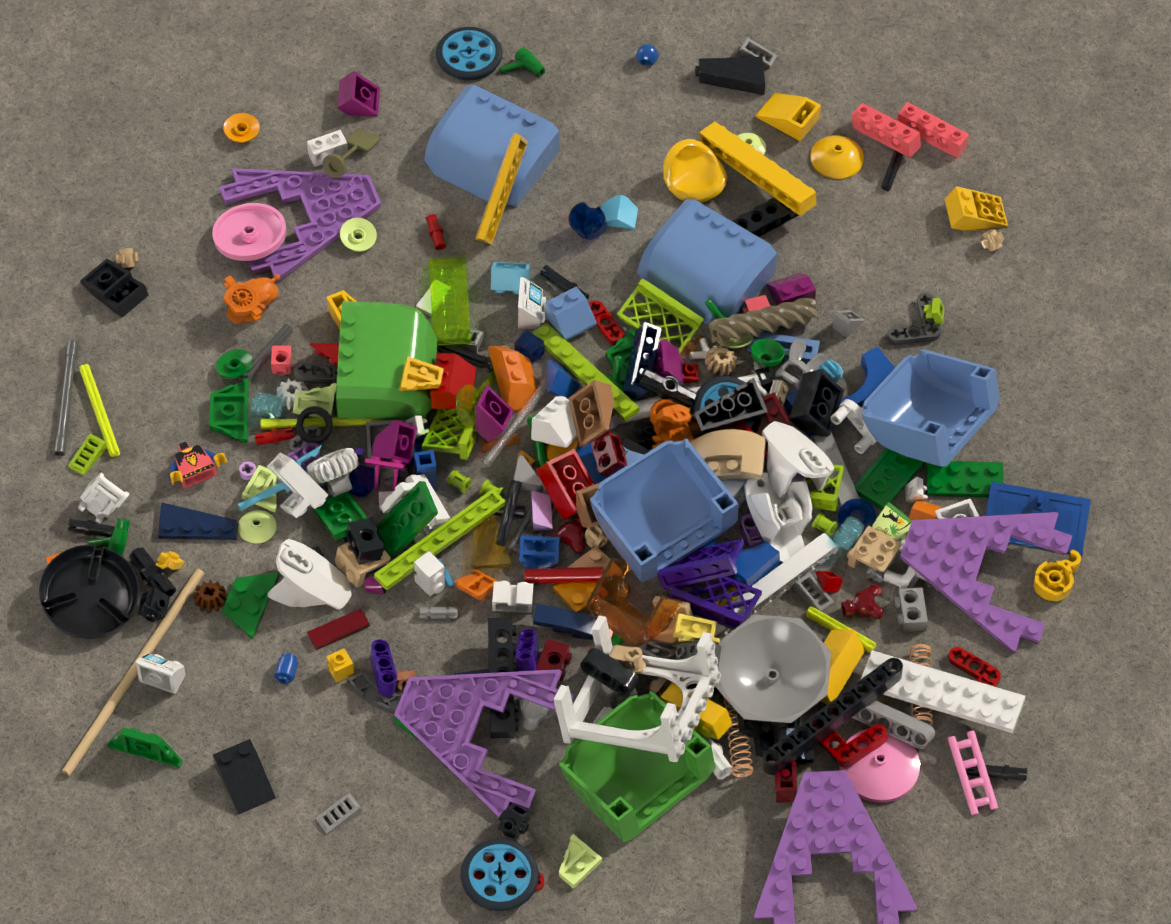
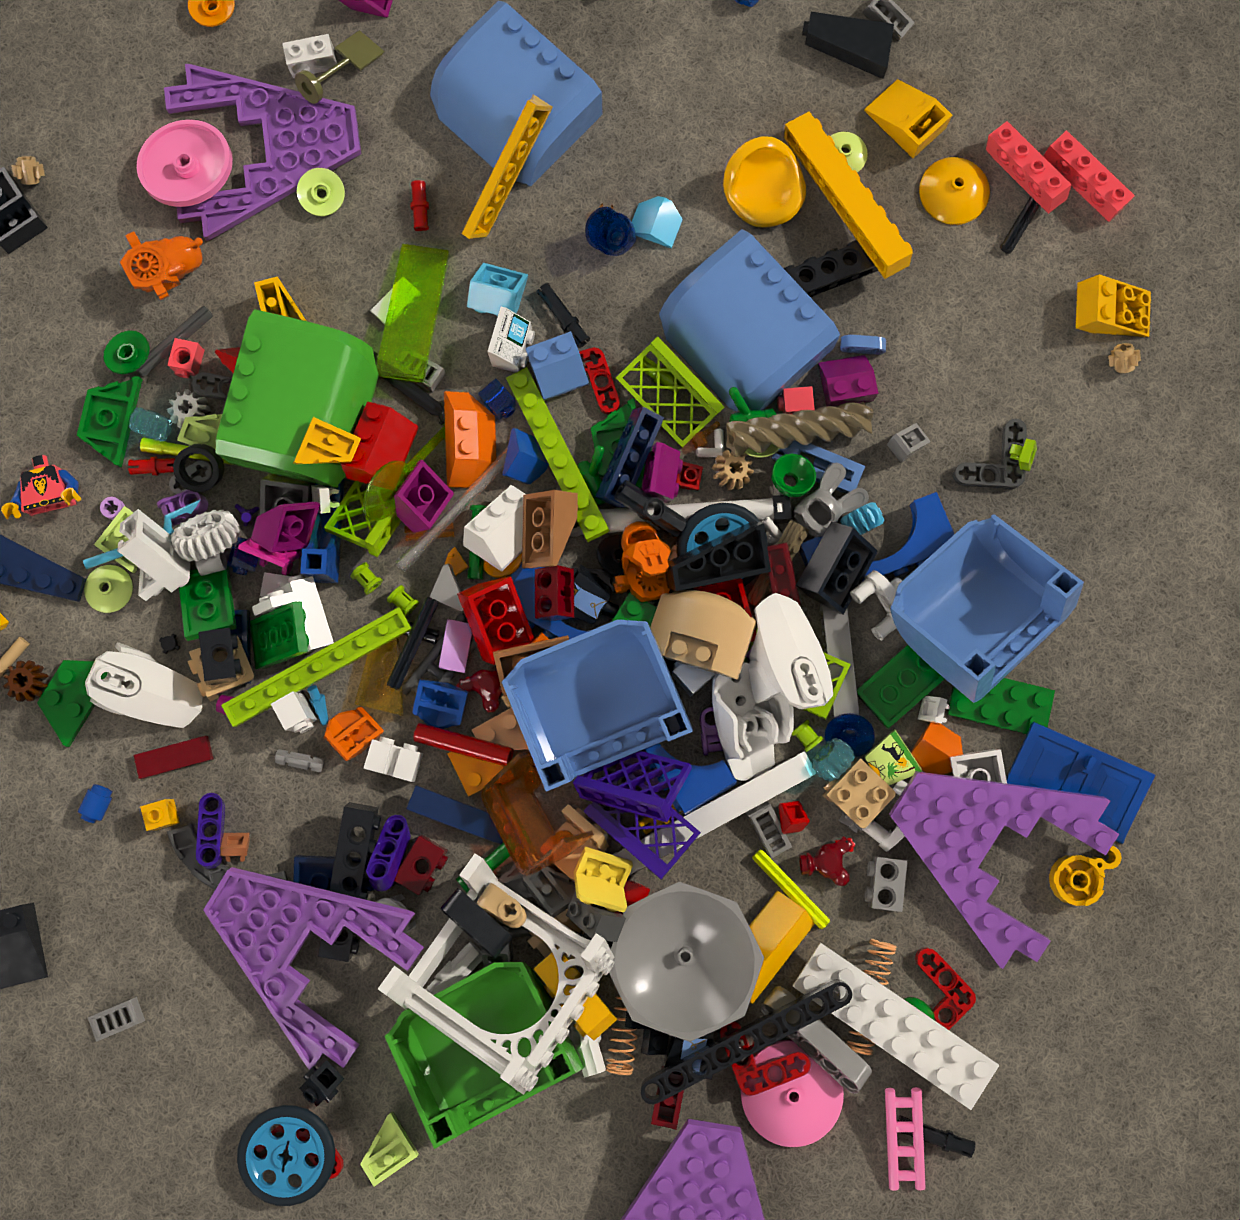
camera: 15 degrees right, 25 degrees up
(796, 264) = (863, 344): none -> medium blue beam

